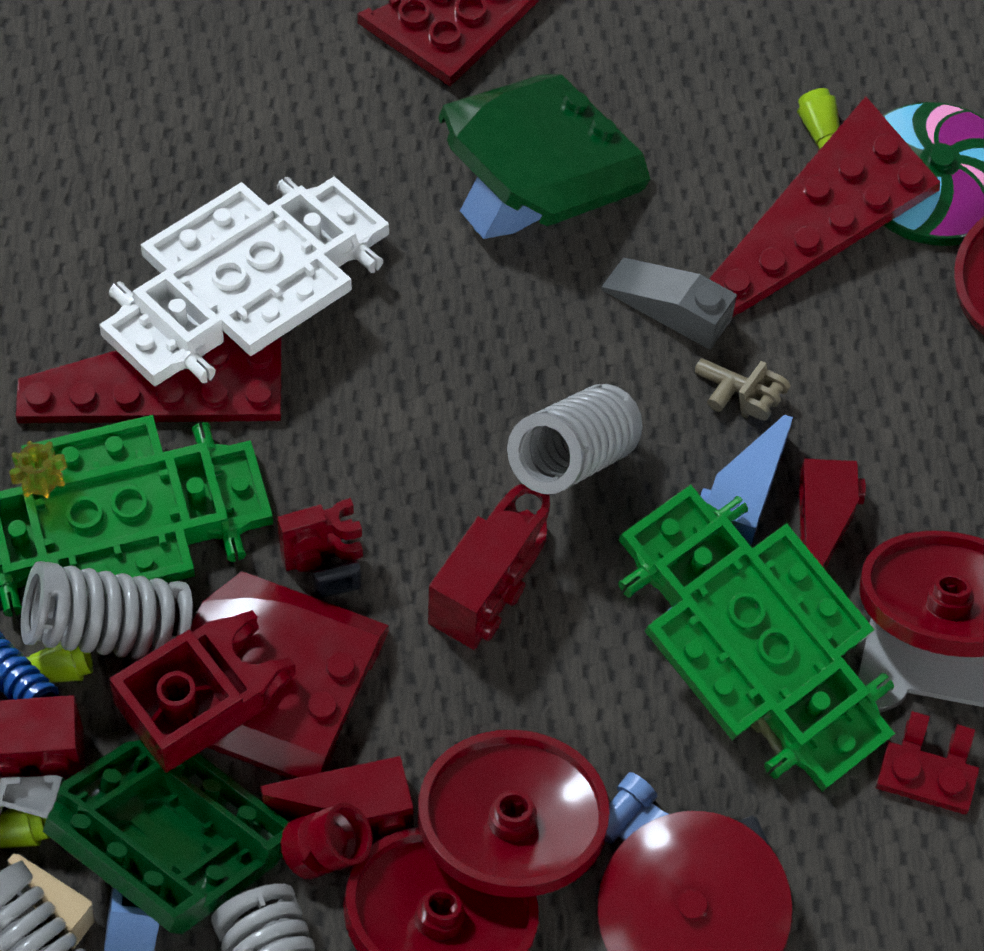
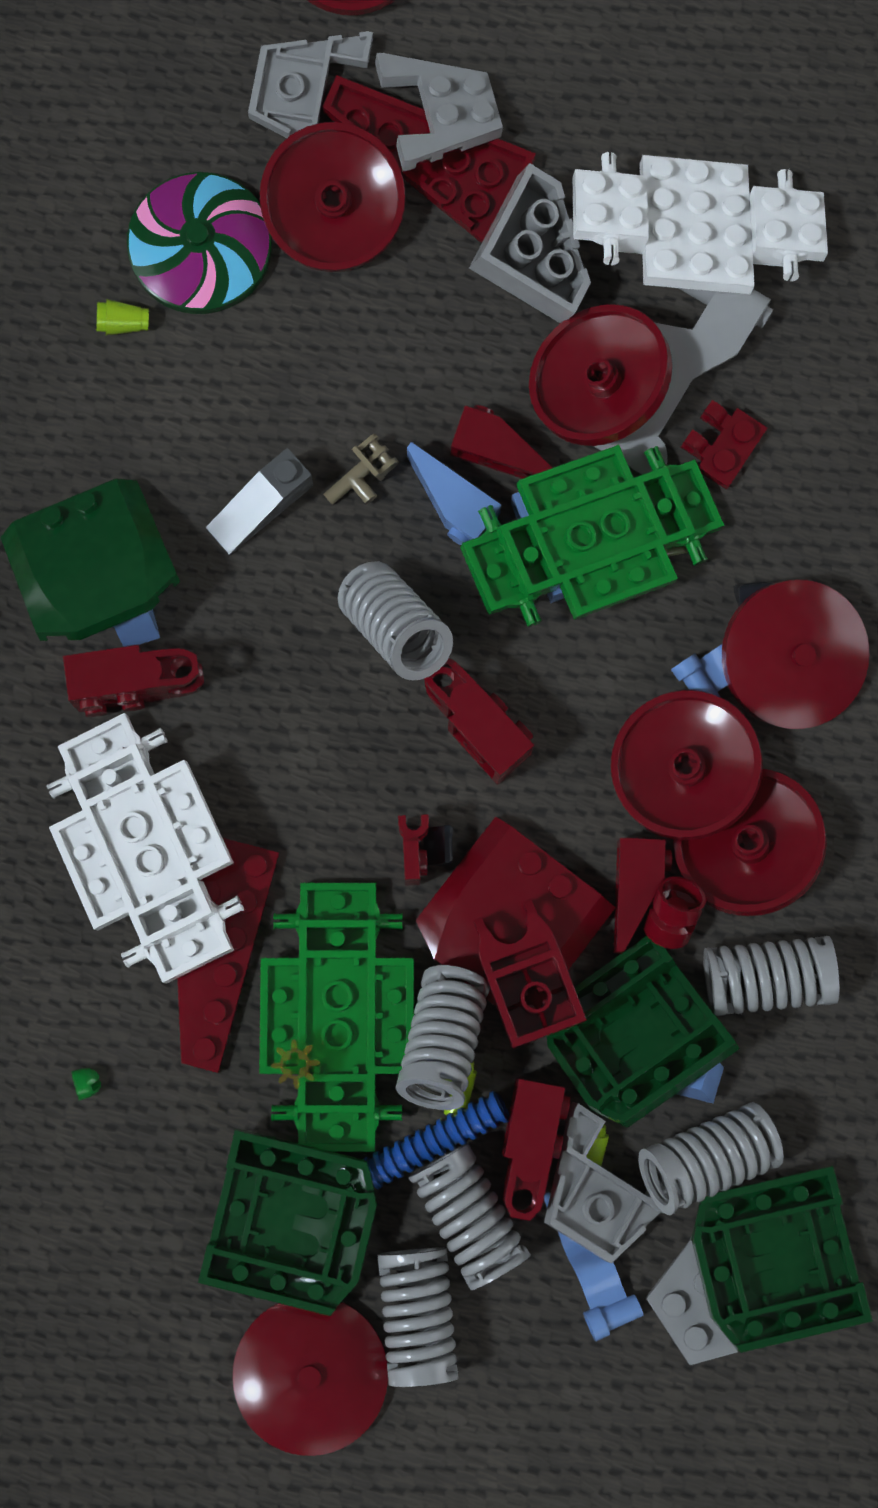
camera: 75 degrees left, 20 degrees up
(68, 903) = (667, 1126): tan slope -> none
(424, 210) = (128, 678): none -> dark red brick
(842, 195) = (207, 327): dark red wing -> none

